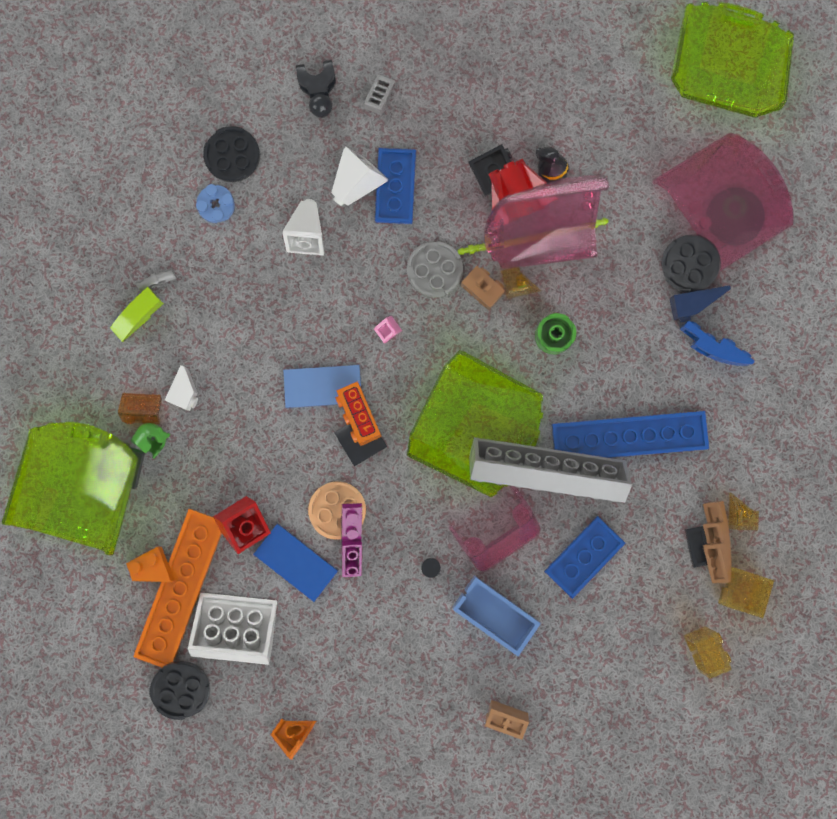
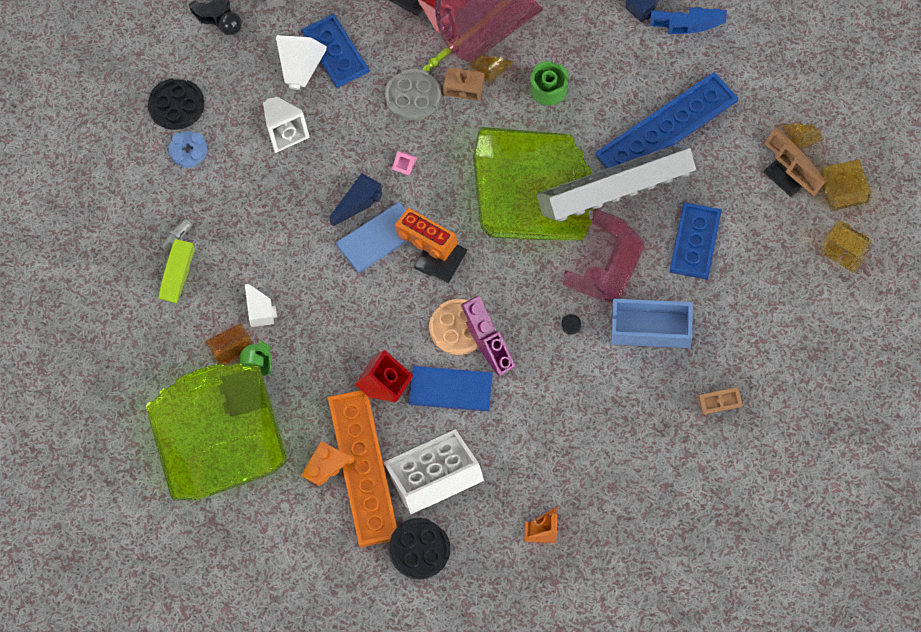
camera: 30 degrees left, 20 degrees down
(328, 340) = (358, 198): none -> dark blue slope

